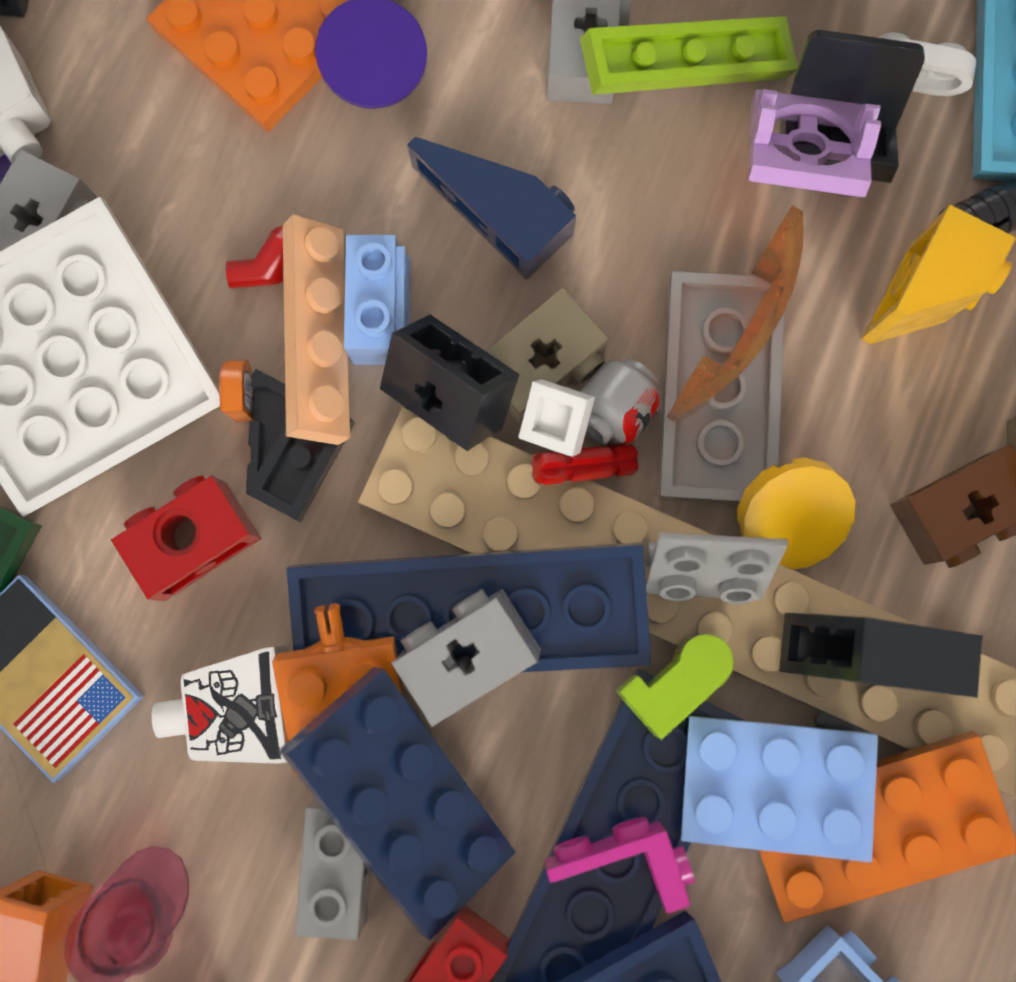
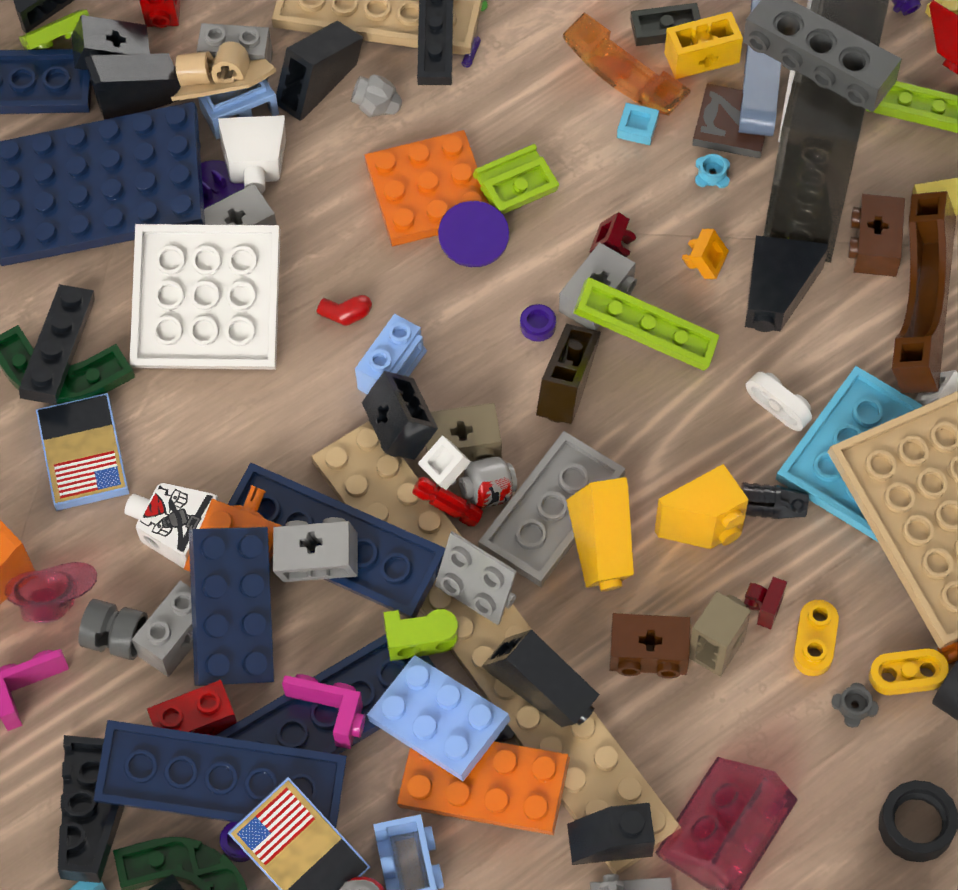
camera: 30 degrees right, 20 degrees down
(150, 545) = (224, 433): red brick -> none
(236, 390) = (285, 365): orange tile -> none
(244, 921) = (109, 628): none -> dark grey wheel
(283, 468) = (295, 408): black wing -> none
(315, 332) = (337, 365): light nougat plate -> none
(502, 203) = (494, 348): dark blue slope -> none
(532, 132) = (538, 322): none -> dark purple tile
(625, 185) = (567, 374): none -> dark brown slope
(780, 268) = (539, 493): clear orange slope -> none
(801, 504) = (548, 591): yellow tile -> none
(804, 170) = (687, 422): lavender piece -> none
(828, 389) = (603, 532): none -> yellow slope
(859, 72) = (718, 398): black bracket -> none

